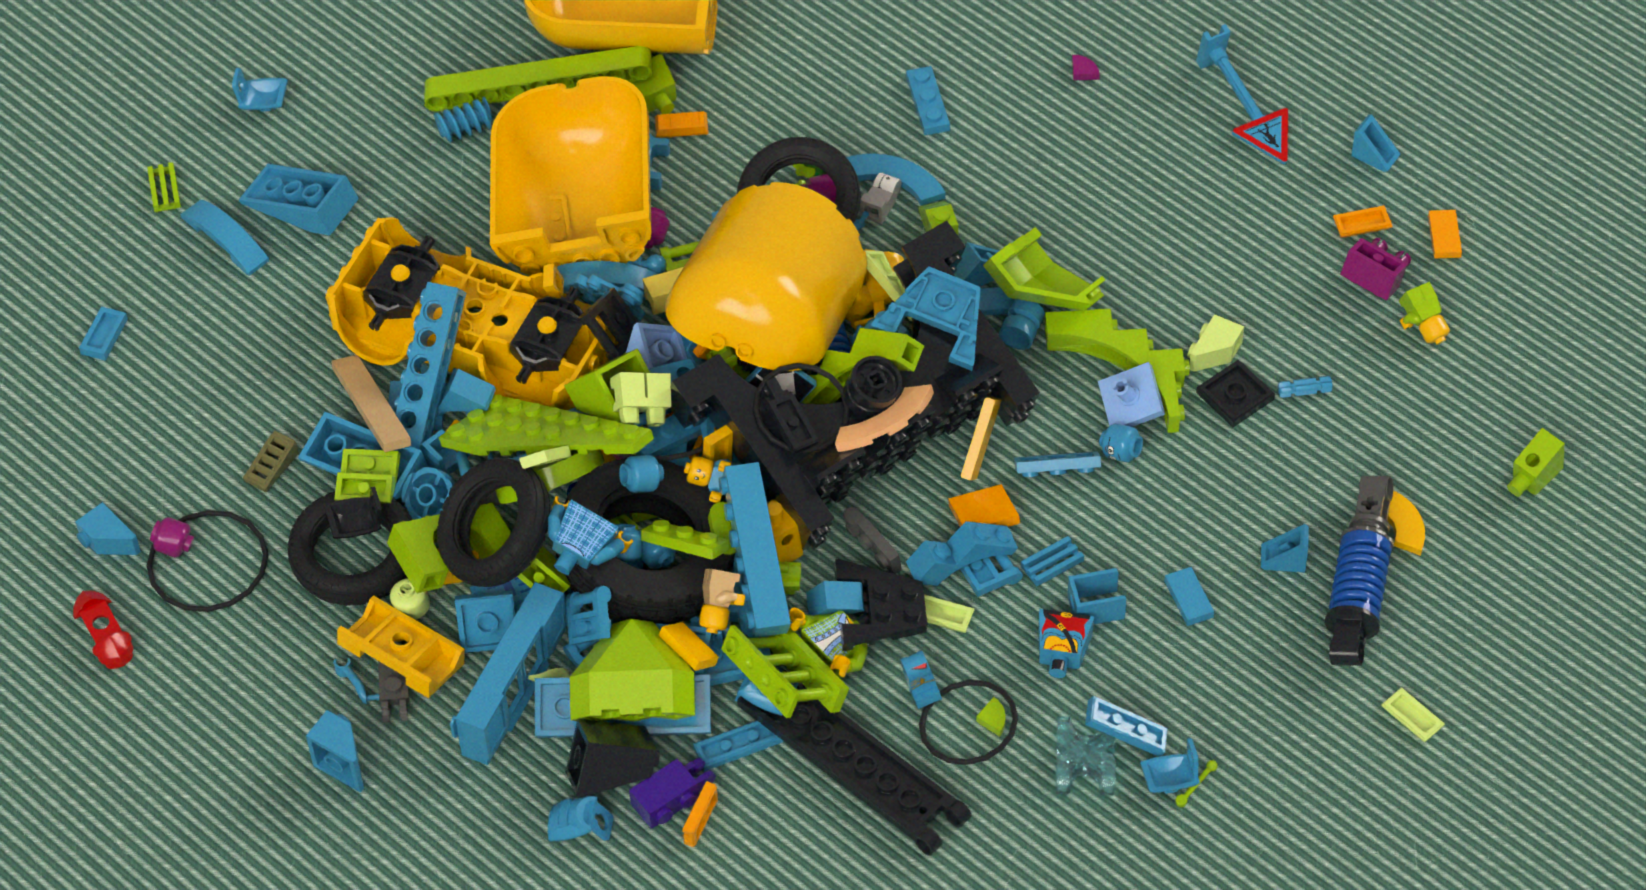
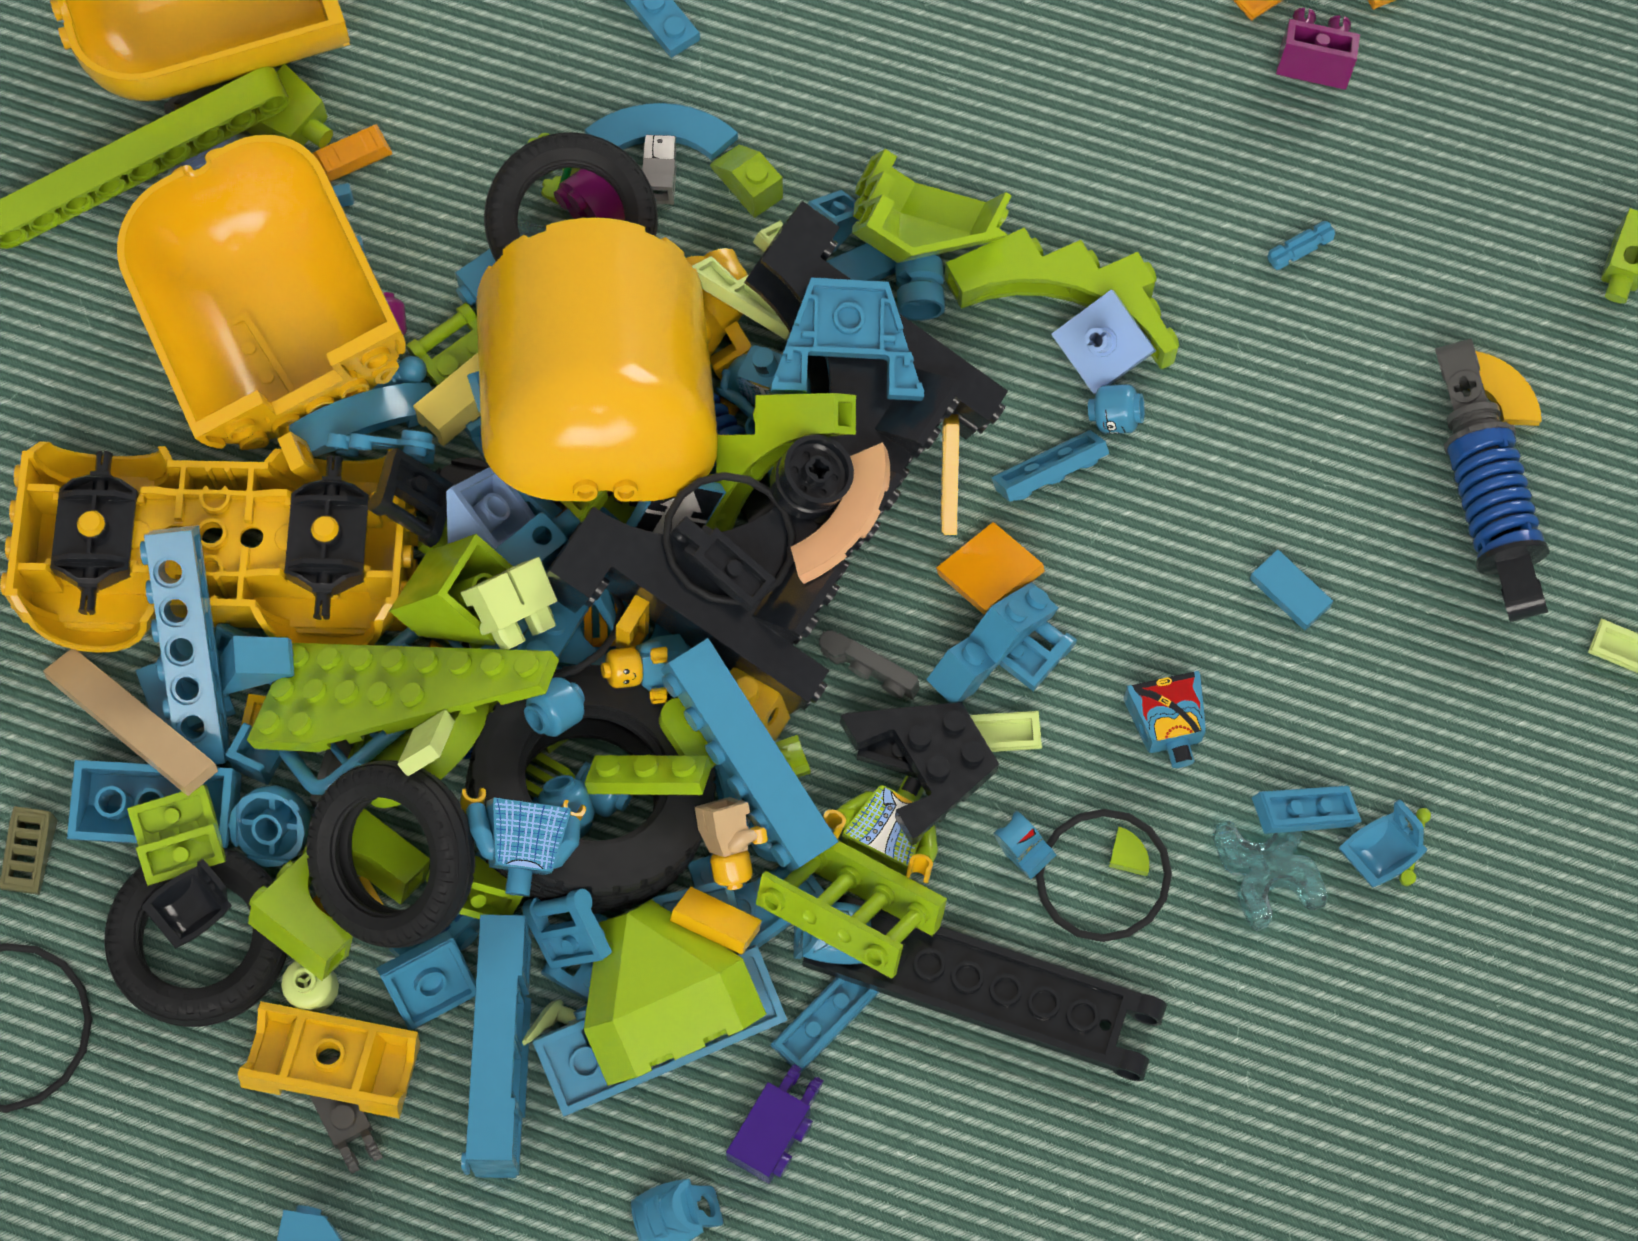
camera: 25 degrees left, 15 degrees up
(346, 671) = (288, 1129): dark azure piece -> none
(464, 119) = (62, 250): dark azure piece -> none
(609, 756) = (680, 1115): black slope -> none
(700, 814) = (828, 1144): light orange tile -> none
(835, 596) = (863, 771): dark azure slope -> none
(1050, 557) = (1120, 580): dark azure tile -> none
(1096, 584) = (1170, 666): dark azure piece -> none
(1216, 345) = (1172, 223): yellowish green slope -> none
(1235, 393) = (1220, 284): black tile -> none
(1286, 551) = (1385, 483): dark azure slope -> none
(1424, 310) = (1404, 90): lime piece -> none

